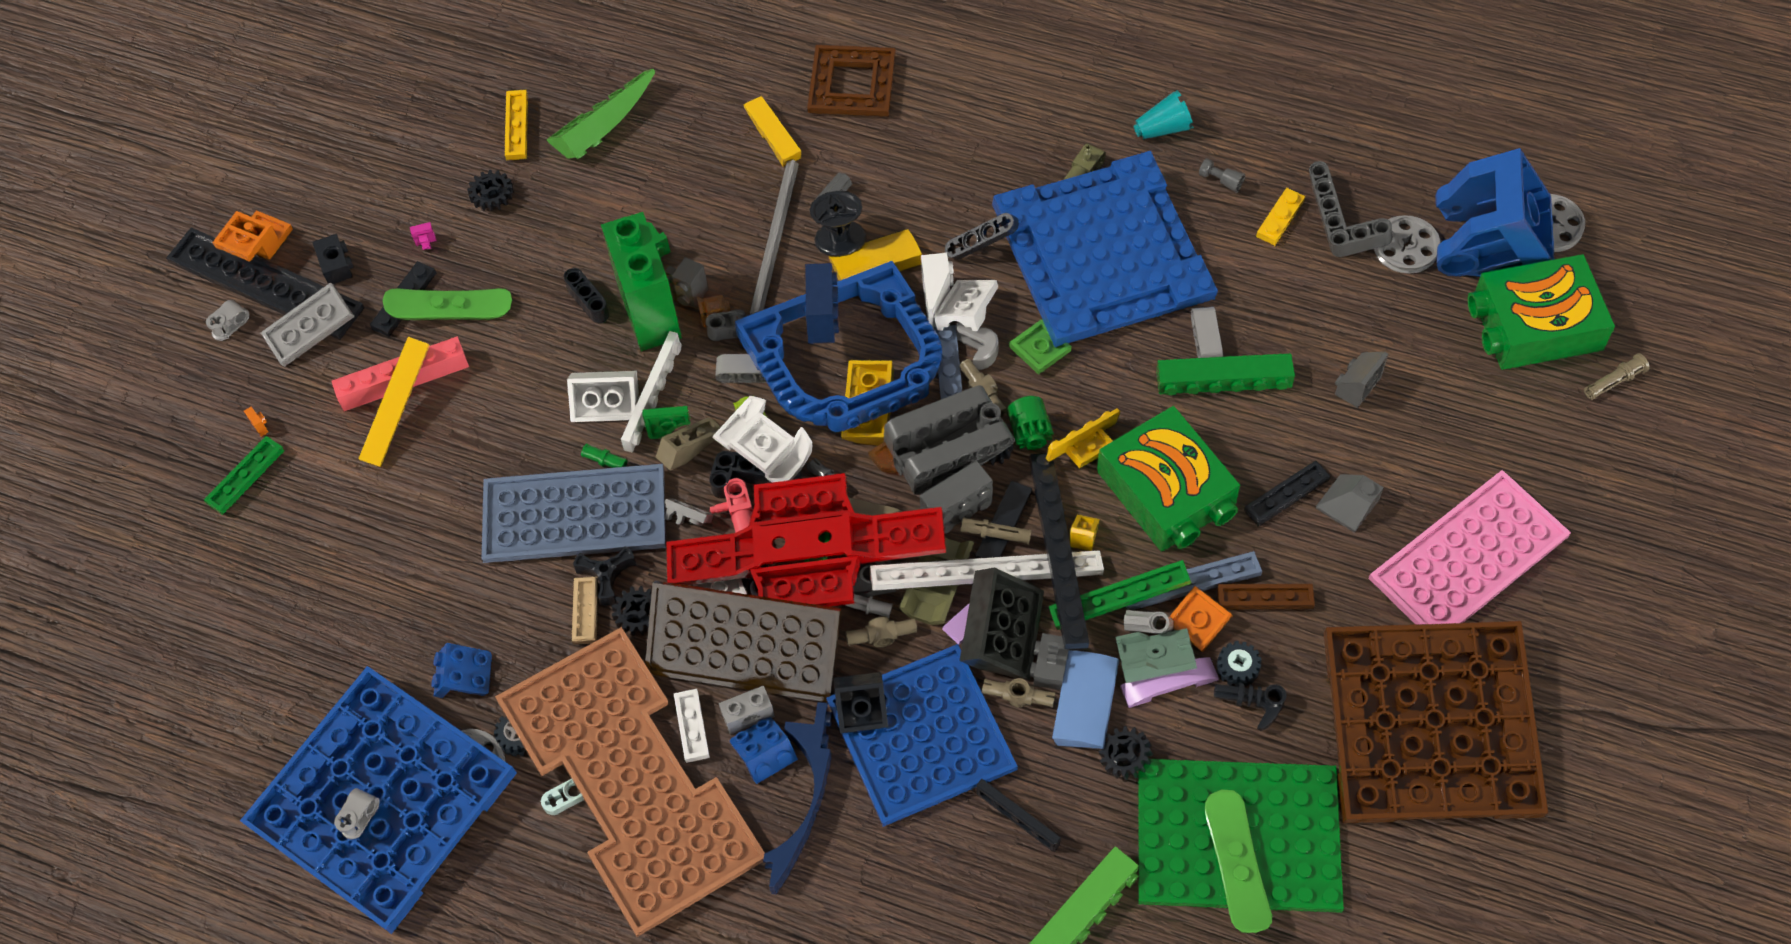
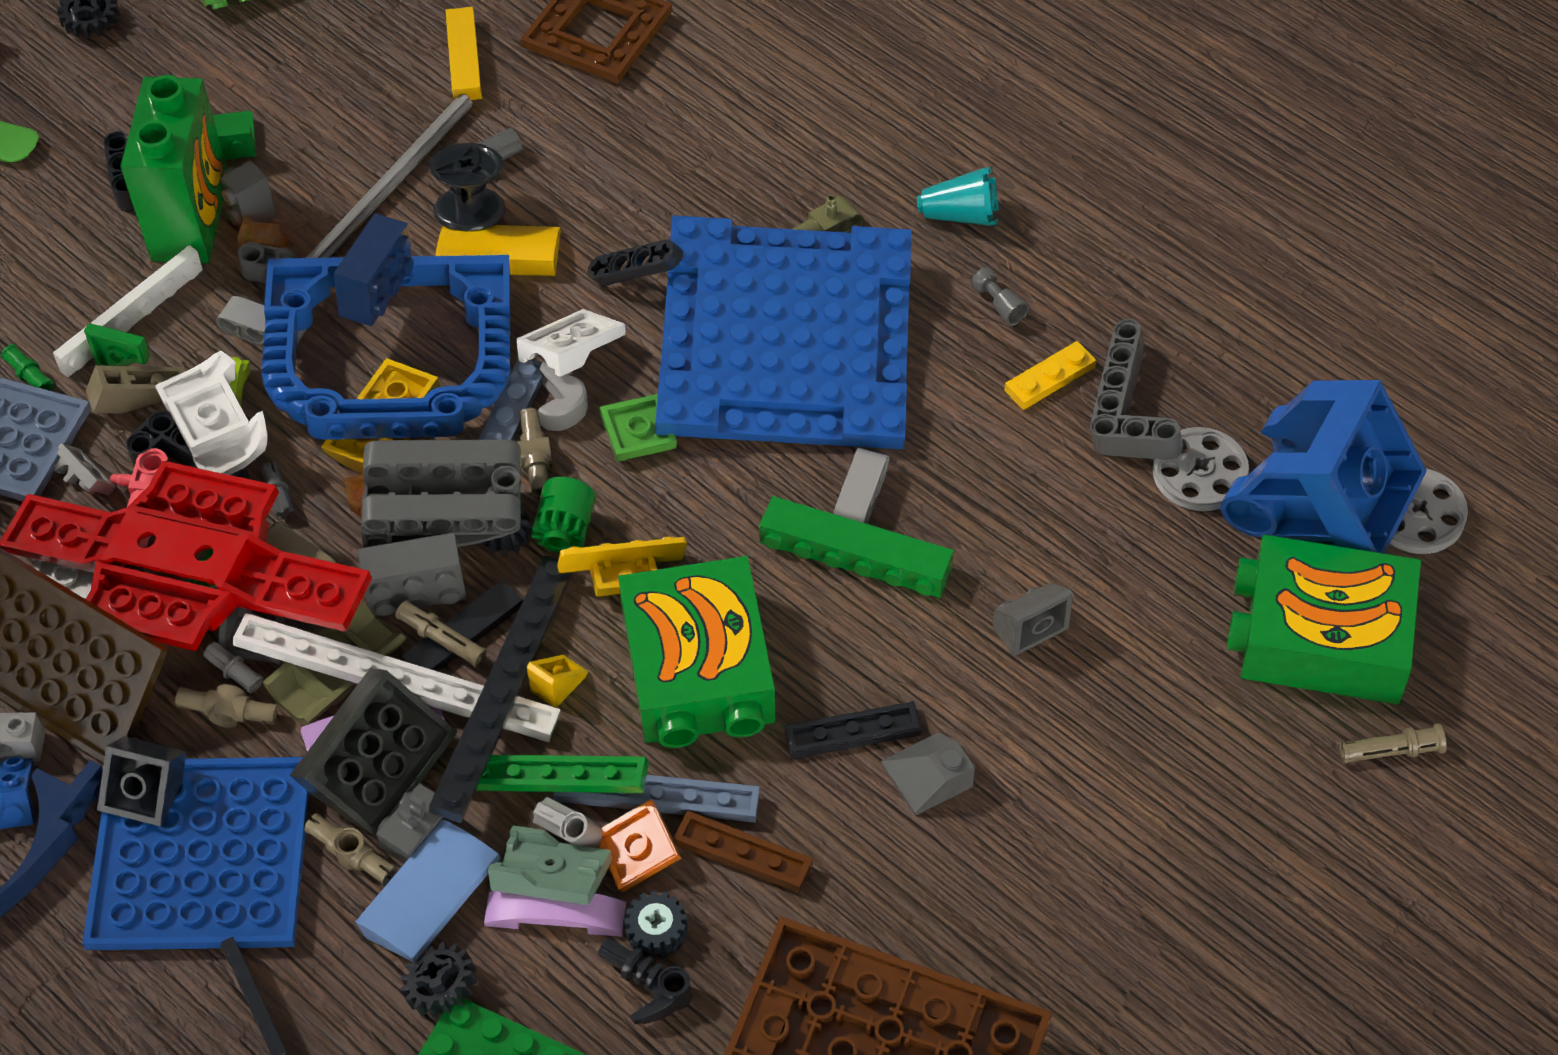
camera: 20 degrees right, 5 degrees down
(602, 395) = (66, 293): white slope -> none
(936, 279) = (545, 299): white slope -> none
(1470, 554) = (1053, 903): bright pink plate -> none

